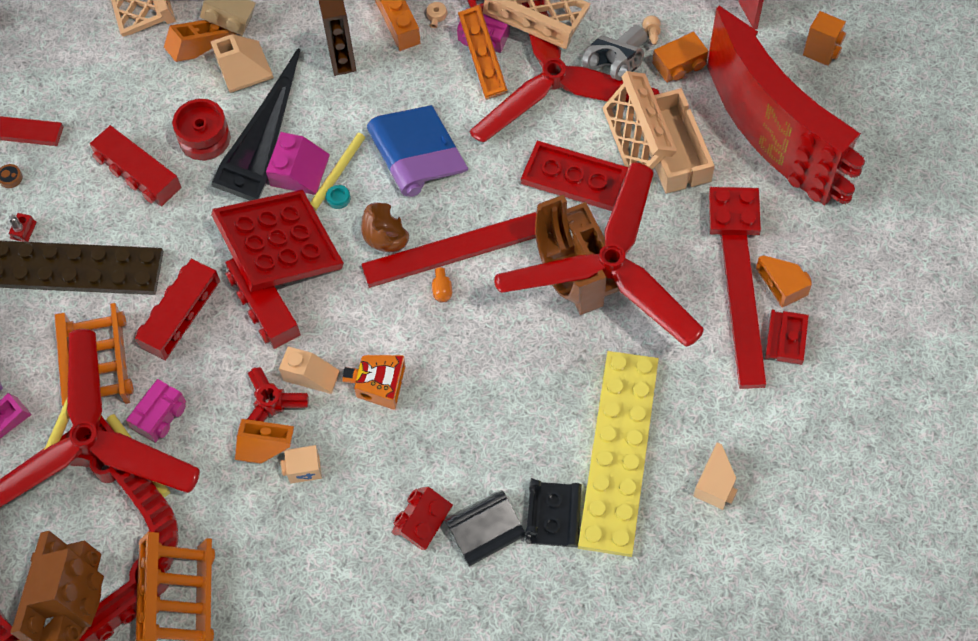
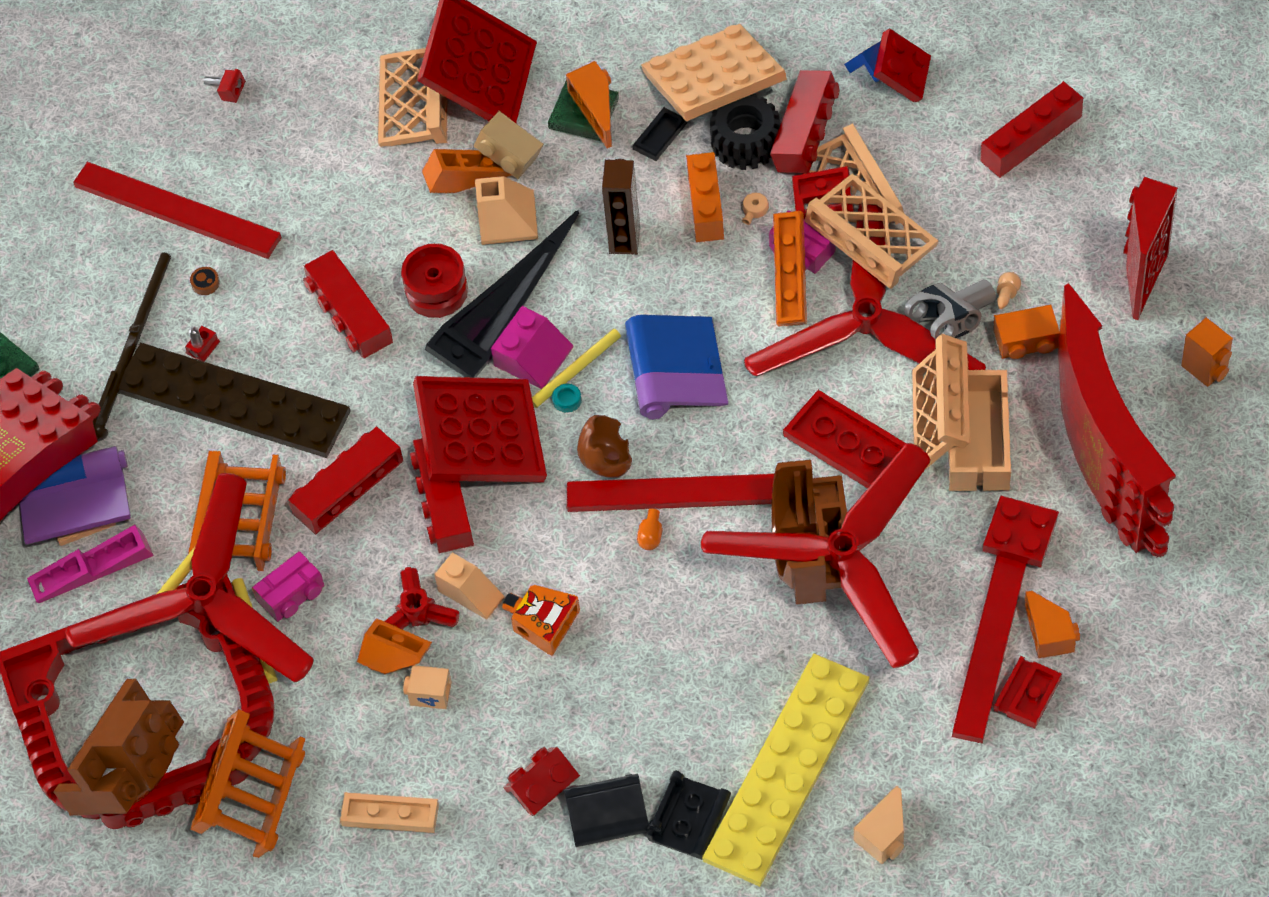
camera: 20 degrees right, 5 degrees down
(302, 582) = (389, 812): none -> light nougat plate

